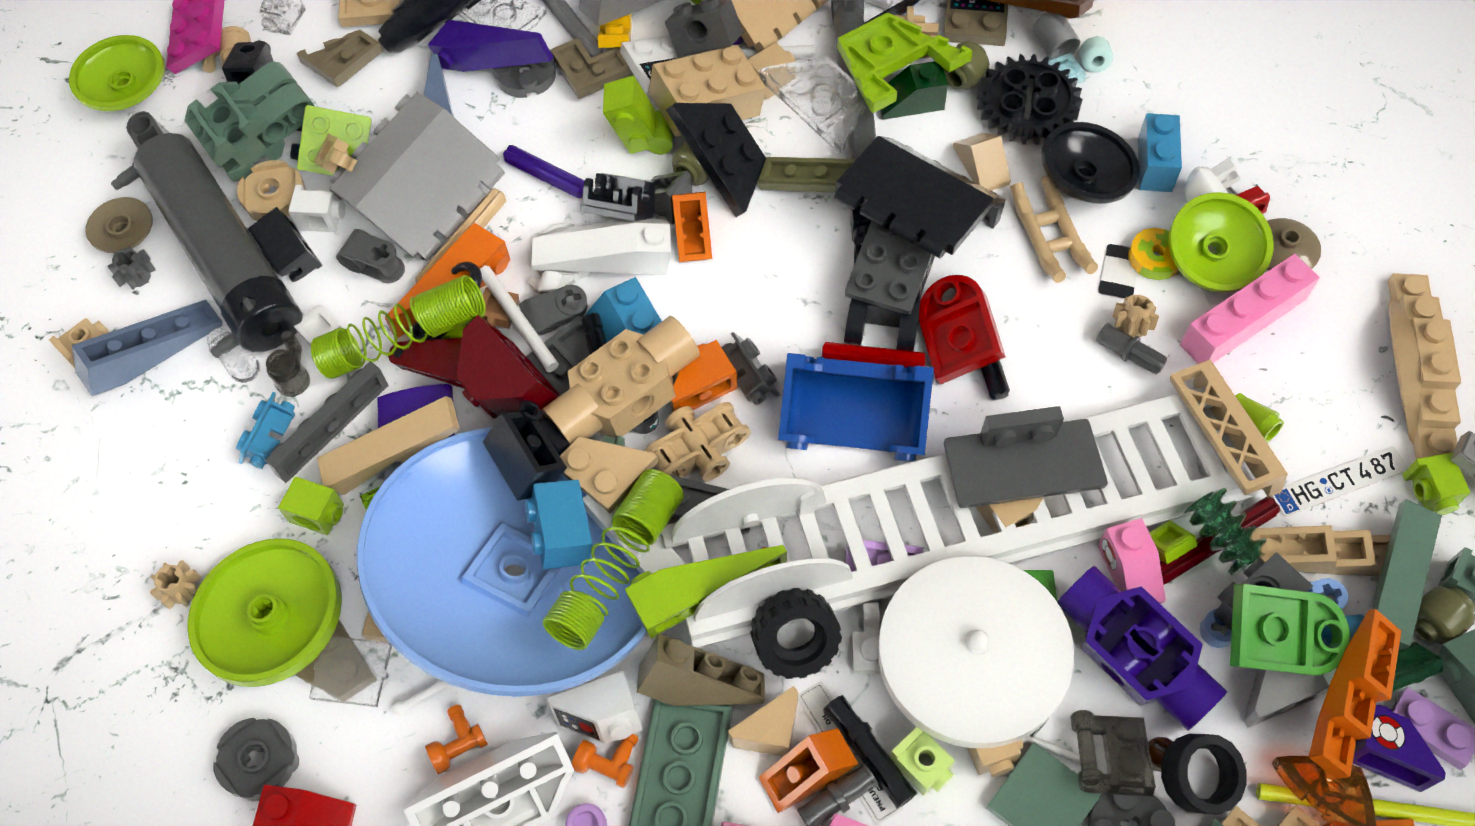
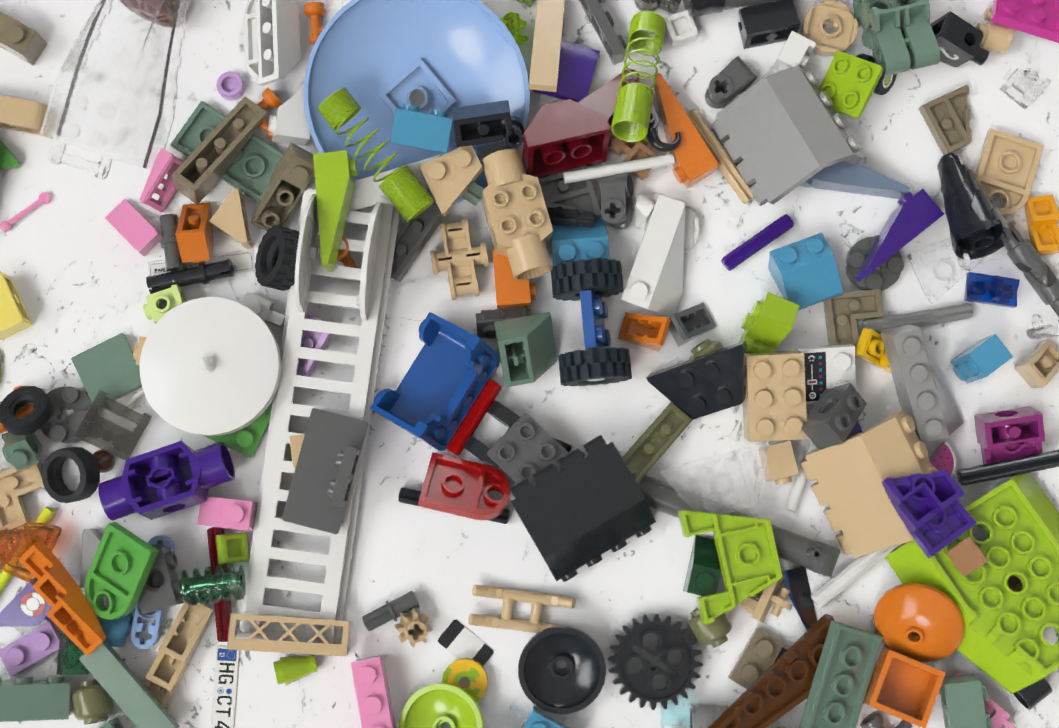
camera: 105 degrees right, 20 degrees up
(334, 155) = (826, 75): tan plate -> none
(561, 110) = (806, 271): none -> dark azure slope
(619, 197) = (694, 282): black hinge -> none
(687, 782) = (217, 151): none -> dark tan slope
(751, 245) = (588, 283): none -> black plate
(774, 328) = (525, 348): none -> sand green slope
(984, 160) = (614, 592): tan slope -> none

